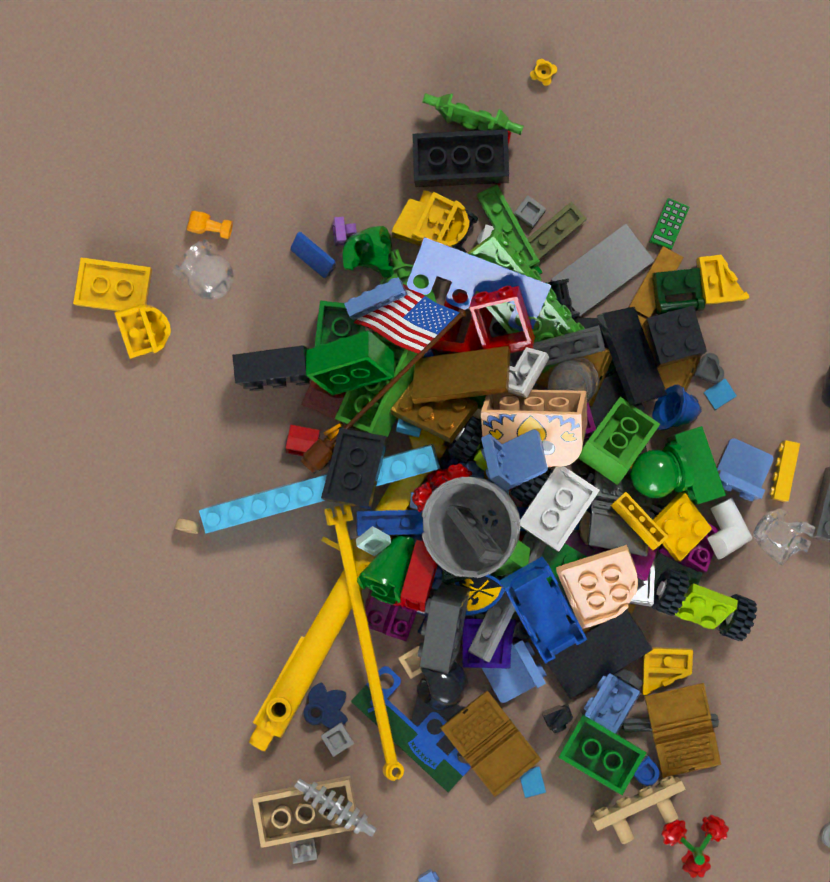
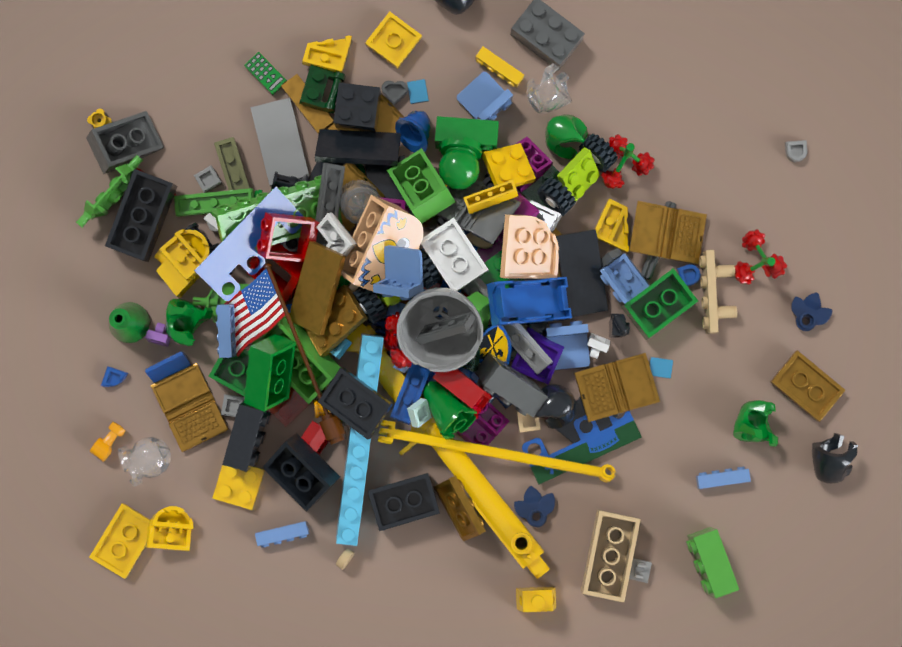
camera: 65 degrees left, 0 degrees up
(187, 448) = (282, 533): none -> medium blue piece
(217, 382) = (238, 486): none -> yellow plate
(226, 749) = (536, 599): none -> yellow torso
(259, 441) = (301, 472): none -> black brick
(272, 564) = (403, 501): none -> black brick
(279, 202) = (113, 377): none -> blue tile
(280, 295) = (189, 407): none -> pearl gold piece
(290, 627) = (460, 508): none -> pearl gold plate
(300, 337) = (231, 404): none -> light grey tile
(337, 739) = (564, 507): light grey tile -> none
(343, 194) = (129, 322): none -> green cone
(361, 824) = (637, 514): light grey piece -> none
(528, 703) = (598, 344): none -> white tile
(532, 104) = (123, 140): none -> dark grey slope
(733, 529) = (526, 126): white brick -> none
(745, 670) = (641, 164): none -> red plant
(747, 571) = (563, 130): none -> green piece
(764, 344) = (393, 40): none -> yellow plate

